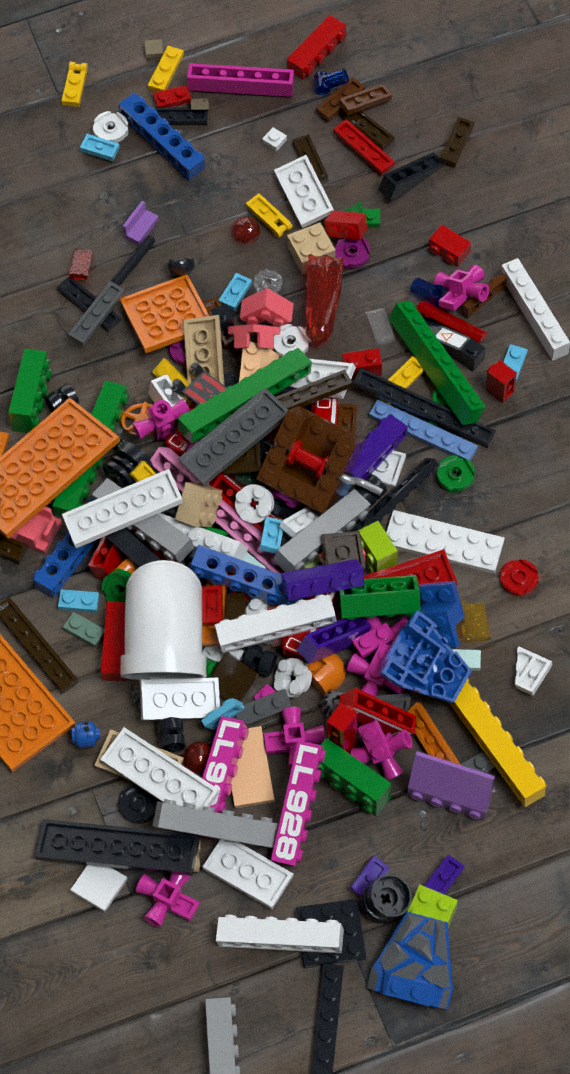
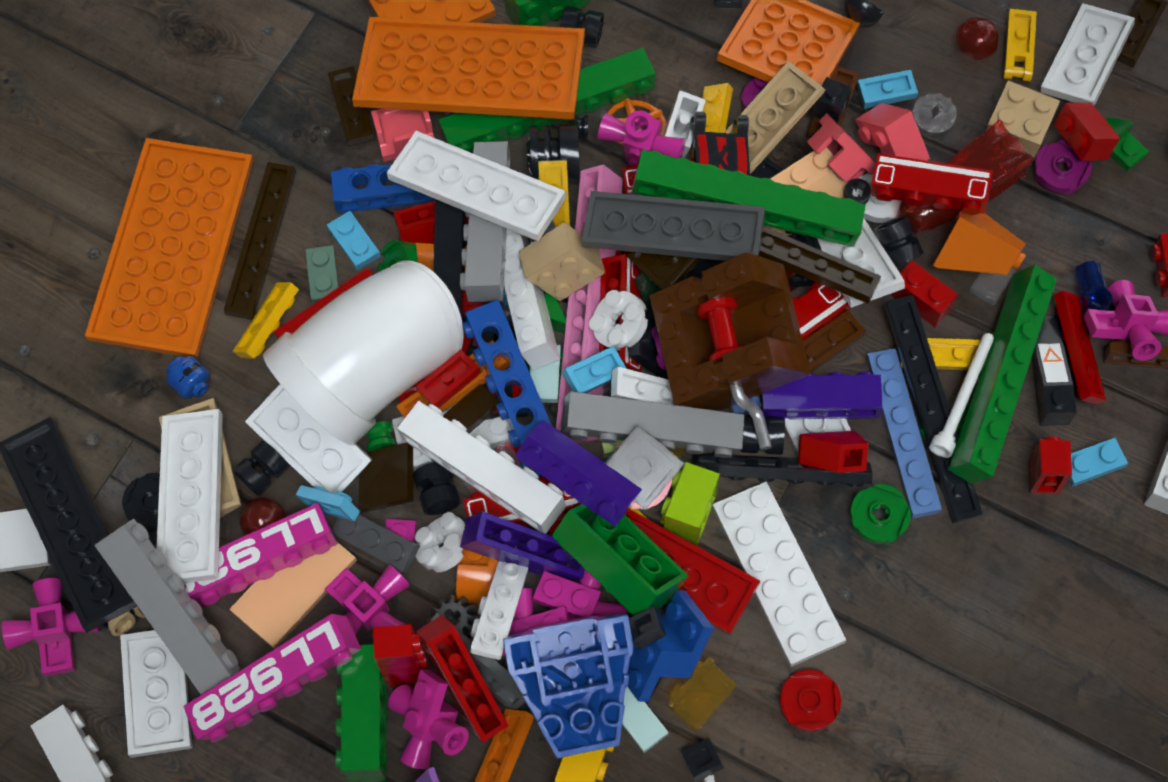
camera: 50 degrees right, 5 degrees up
(87, 674) = (266, 320): none -> yellow plate
(281, 343) = (858, 184): none -> black bush
(315, 310) = (931, 184): none -> red brick
(324, 350) = (898, 240): none -> black wheel
(357, 672) = (498, 610): none -> white bracket
(362, 319) = (981, 246): none -> orange slope
(408, 466) = (834, 451): none -> red slope
(429, 608) = (646, 627): none -> black plate
(447, 415) = (943, 443): none -> white piece
(507, 645) = (702, 759): none -> black plate

